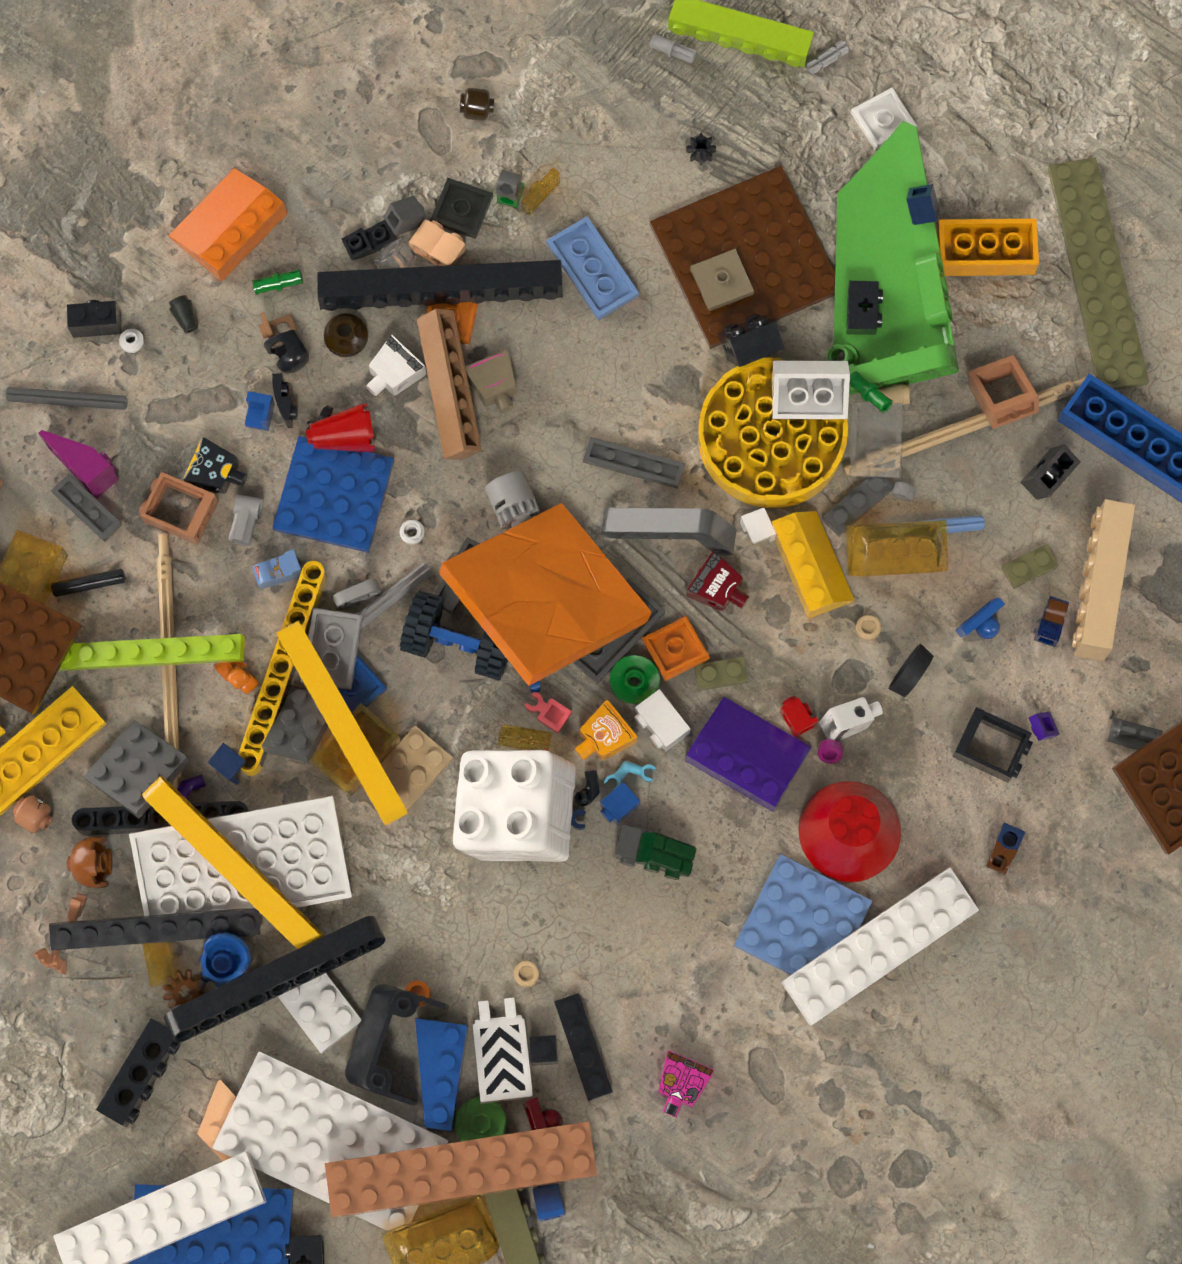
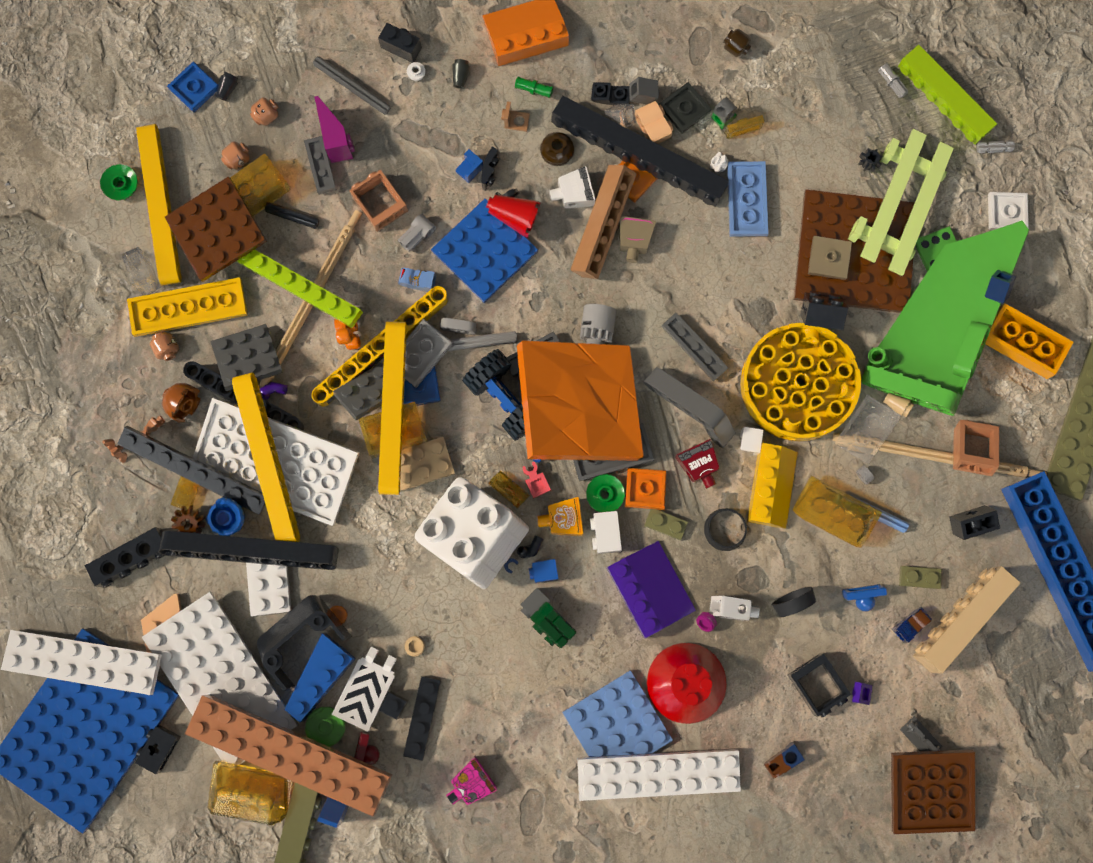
camera: 30 degrees right, 5 degrees up
(214, 468) = (416, 187): black torso -> none
(227, 762) = (306, 388): dark blue panel -> none
(292, 354) = (514, 140): black helmet -> none
(409, 525) = (520, 300): white plate -> none
(537, 246) = (719, 162): none -> white plate
(627, 767) = (563, 549): medium azure arm -> none
(743, 127) = (908, 161): none -> yellowish green fence
(783, 662) = (709, 538): none -> black tyre
(797, 716) = (699, 584): red brick -> none
(810, 389) = (844, 369): white slope -> none
(823, 202) = (932, 244): none -> bright green tile
(857, 504) = (828, 464): dark grey plate -> none
(863, 293) = (905, 339): black brick -> none
(868, 628) = (783, 553): tan tile -> none
(870, 392) = (883, 394): green pin -> none

